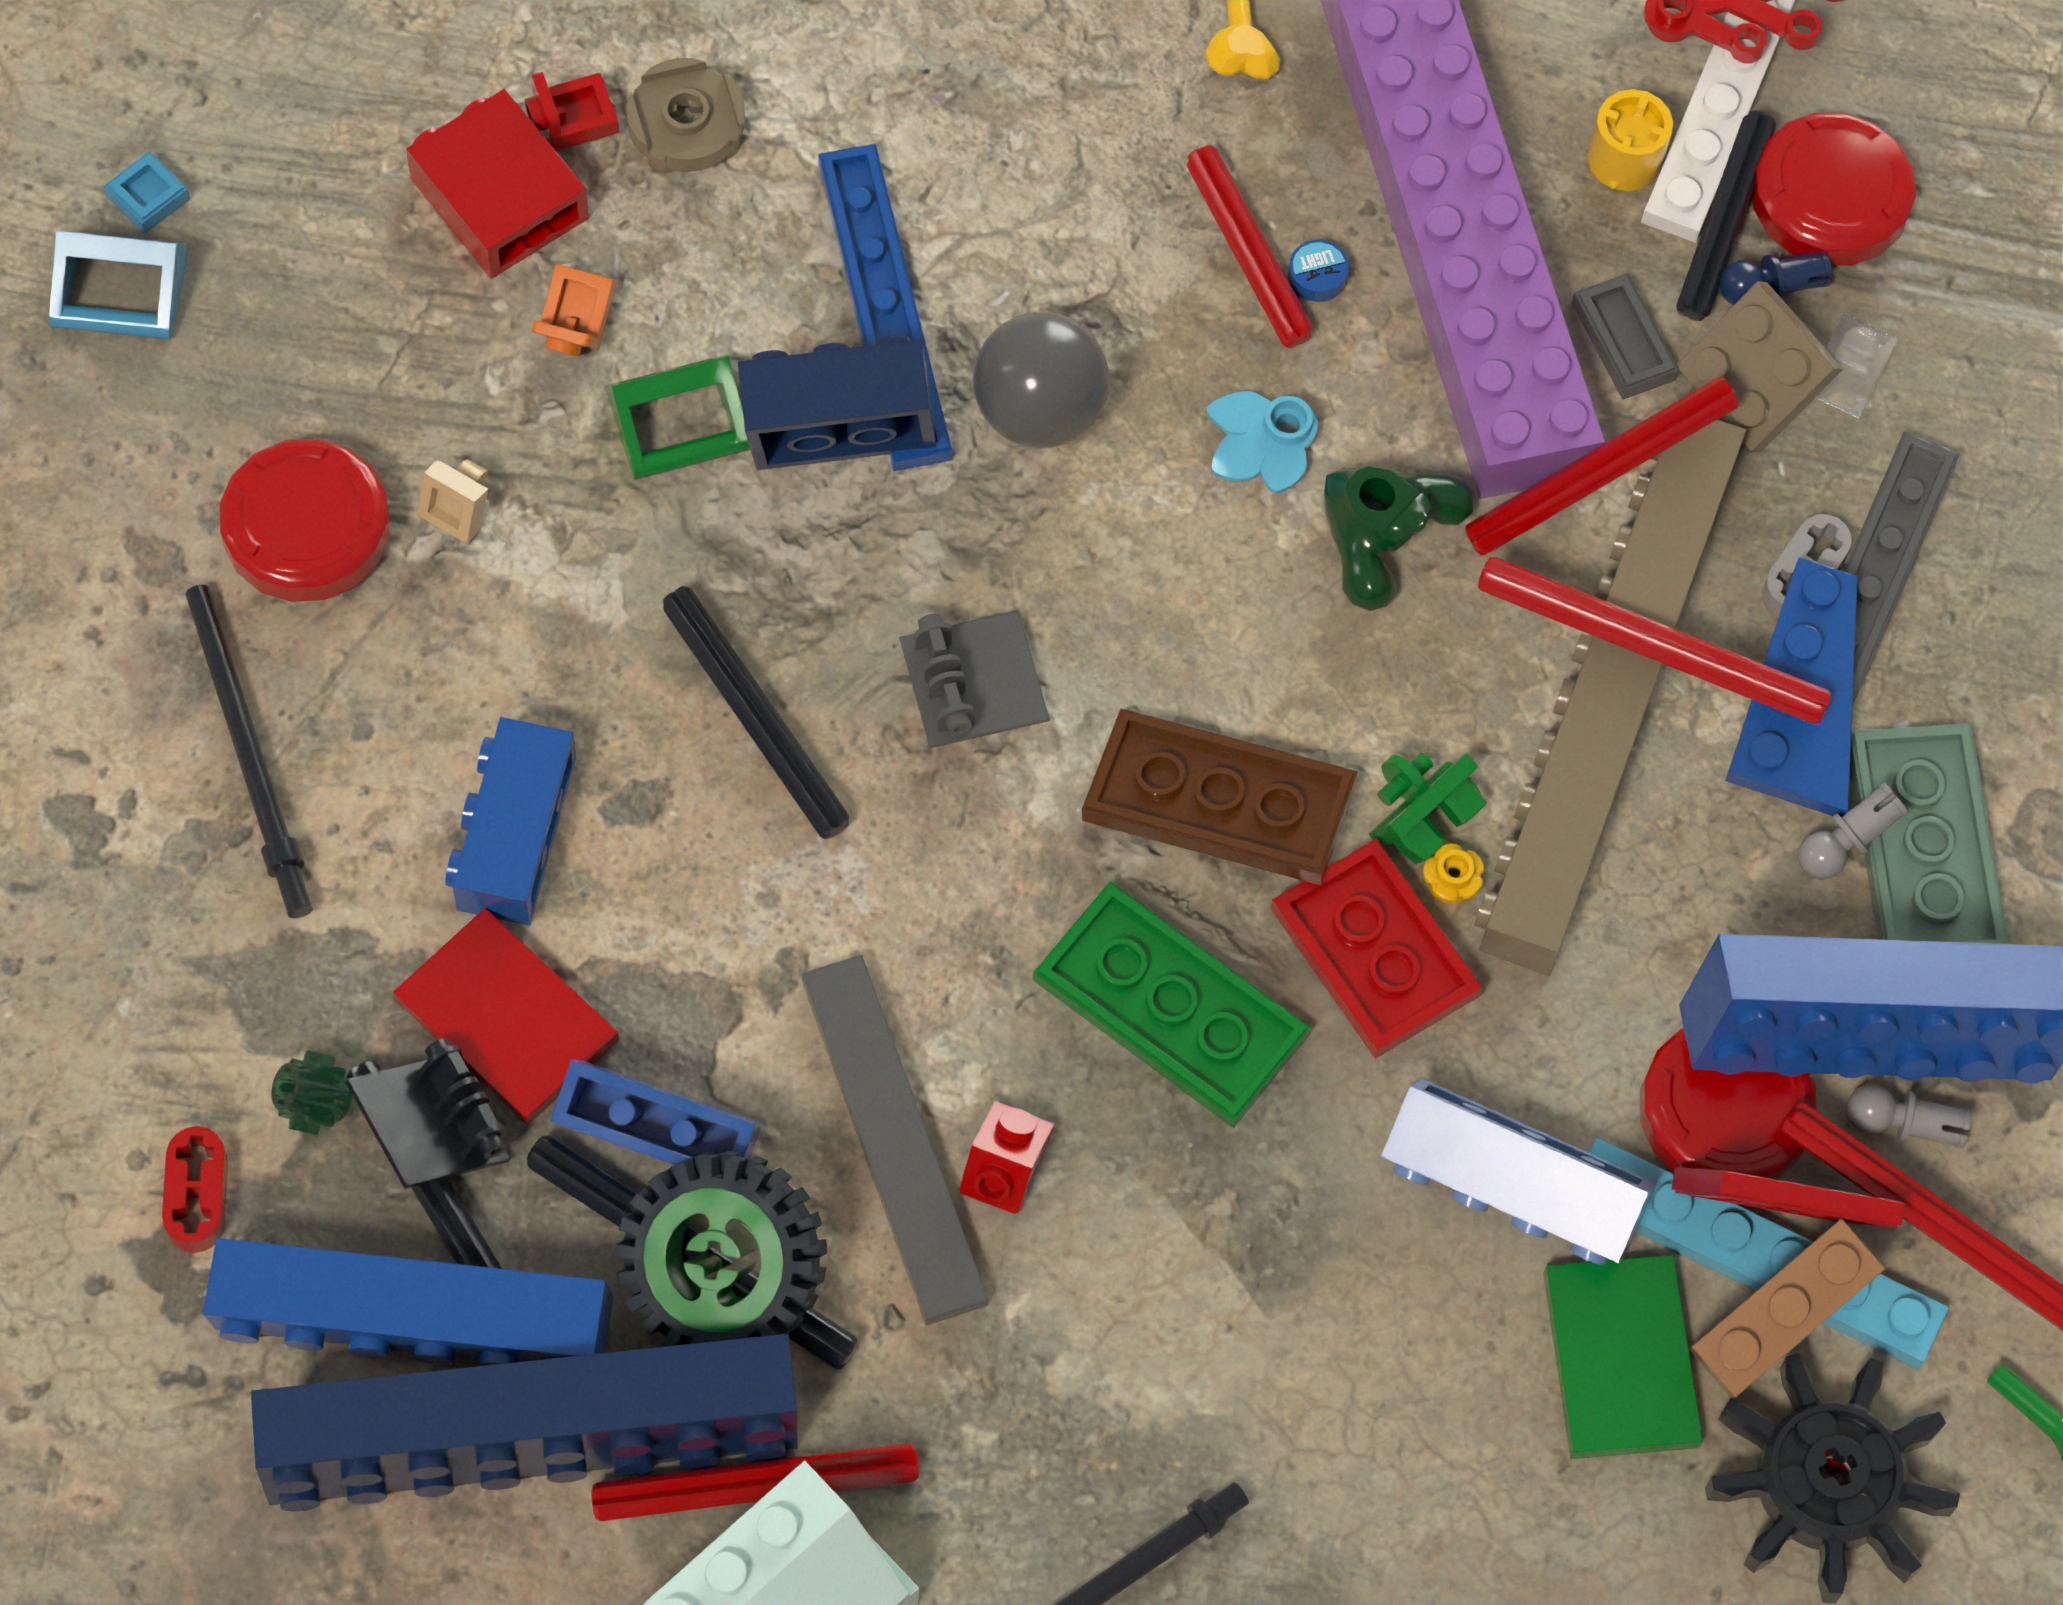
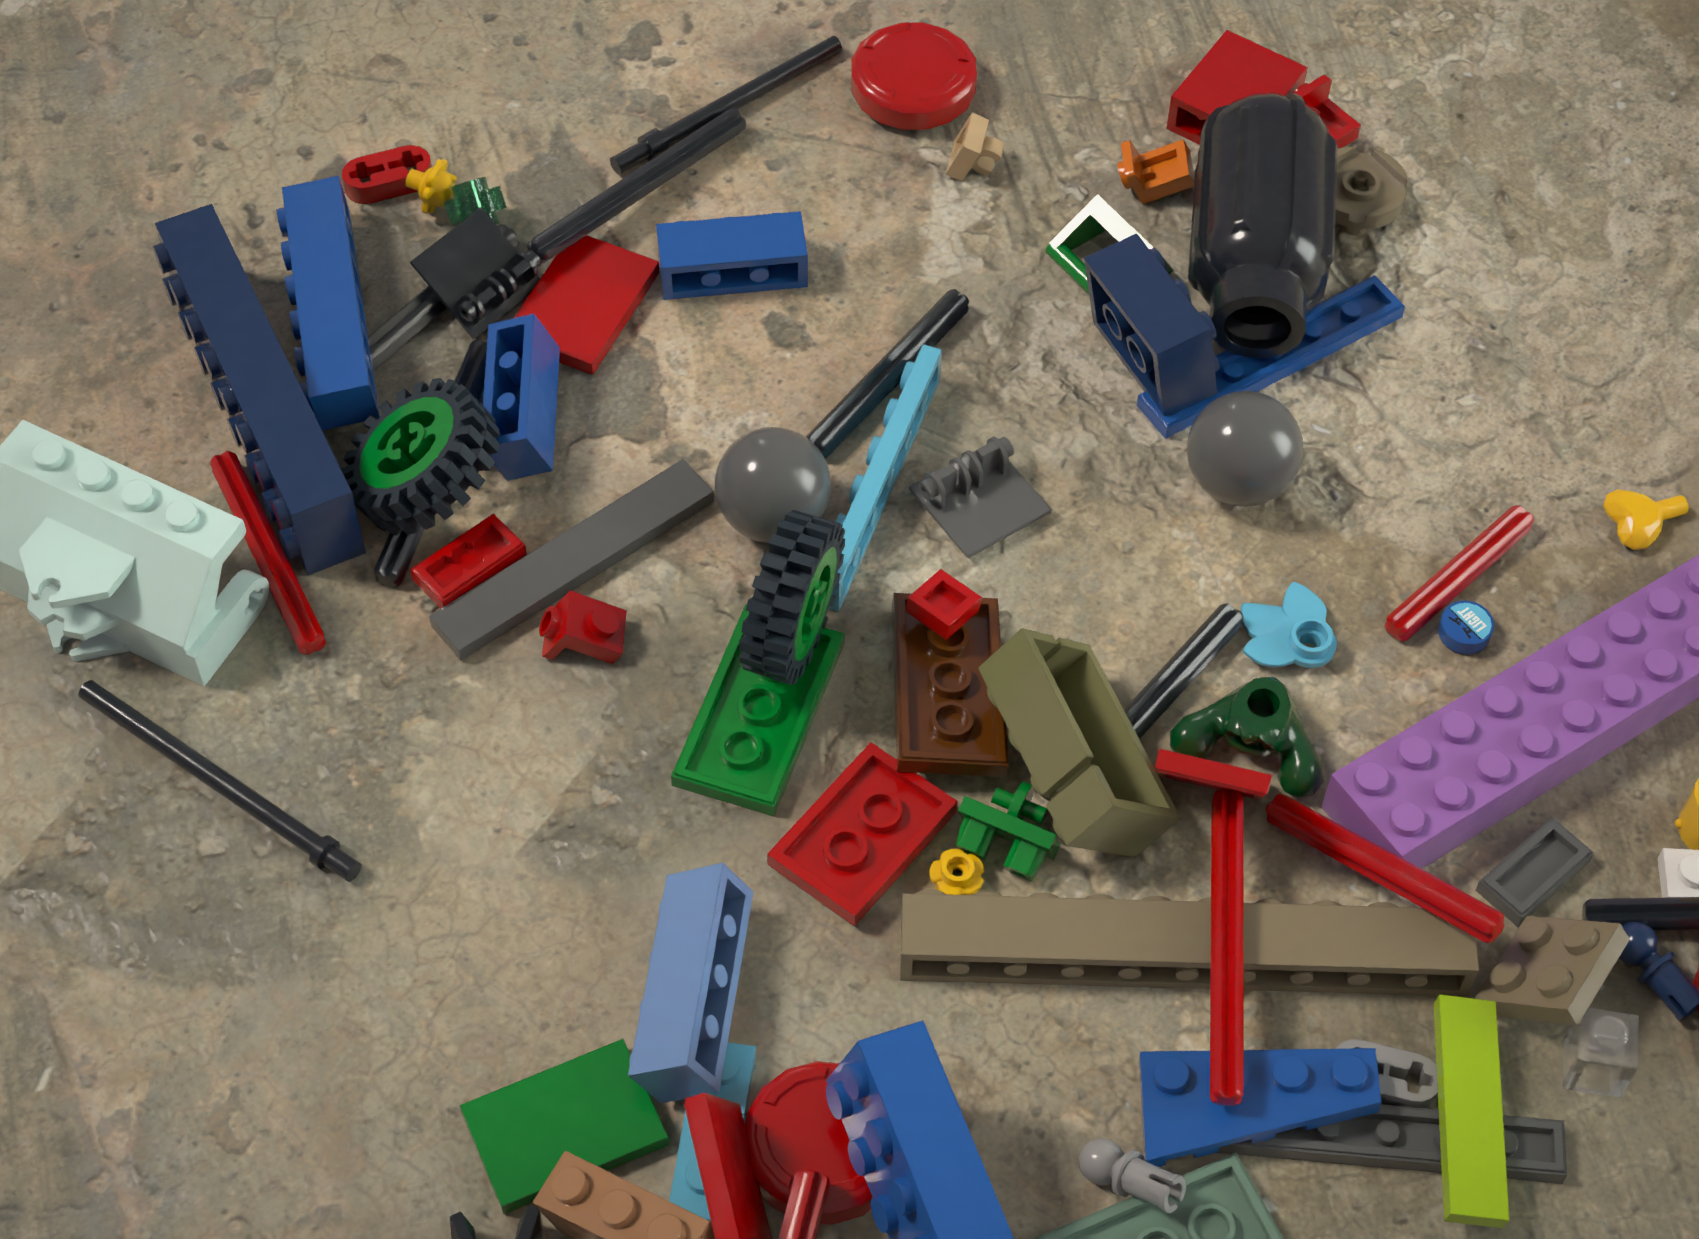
camera: 75 degrees right, 10 degrees down
(256, 1133) = (433, 185): none -> yellow plant
(356, 893) = (637, 185): none -> black axle
(736, 228) = (1263, 221): none -> black piece
(864, 1255) = (468, 561): none -> red plate
(906, 881) = (767, 477): none -> dark grey piece
(927, 780) = (885, 461): none -> medium azure plate
(1112, 899) = (792, 596): none -> black wheel
(1134, 760) = (943, 604): none -> red plate
(1285, 576) = (1183, 668): none -> black axle
(1367, 691) = (1078, 744): none -> olive piece
(1460, 574) = (1212, 774): none -> red tile
(1879, 503) = (1470, 1112): none -> lime tile

